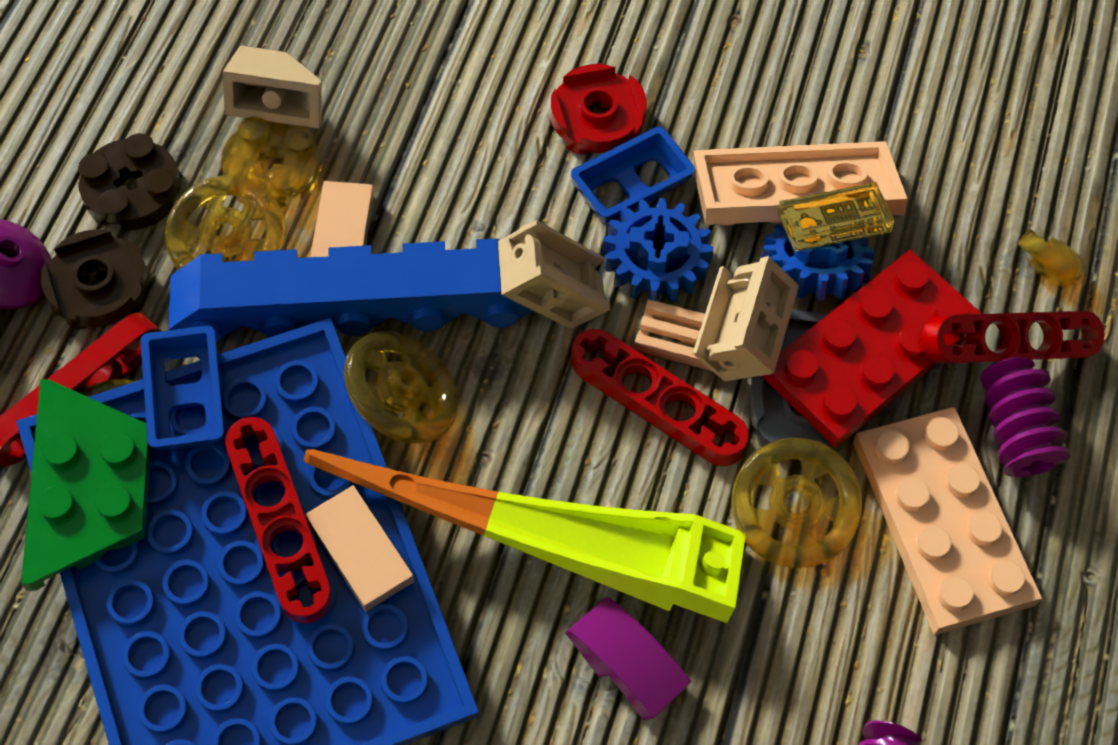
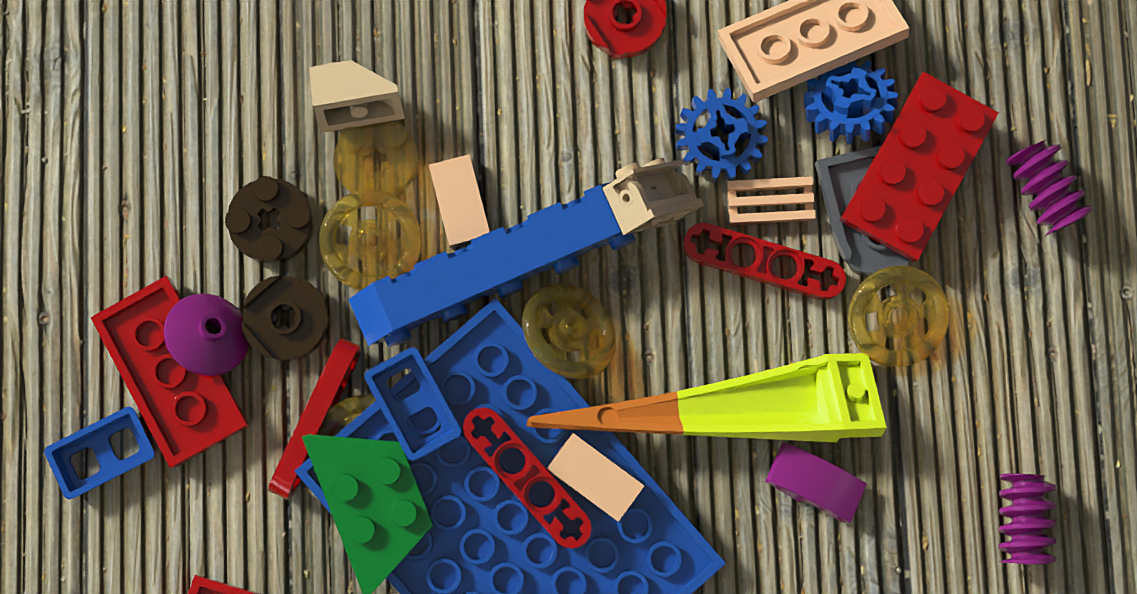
camera: 15 degrees left, 20 degrees up
(619, 166) = (661, 63): blue piece -> none
(746, 320) = (817, 184): tan hinge -> none
(835, 216) = (859, 68): clear yellow tile -> none
(946, 521) = (1010, 286): light nougat plate -> none
(1014, 336) = (1027, 129): red beam -> none
(1053, 259) = (1032, 29): clear yellow cylinder -> none

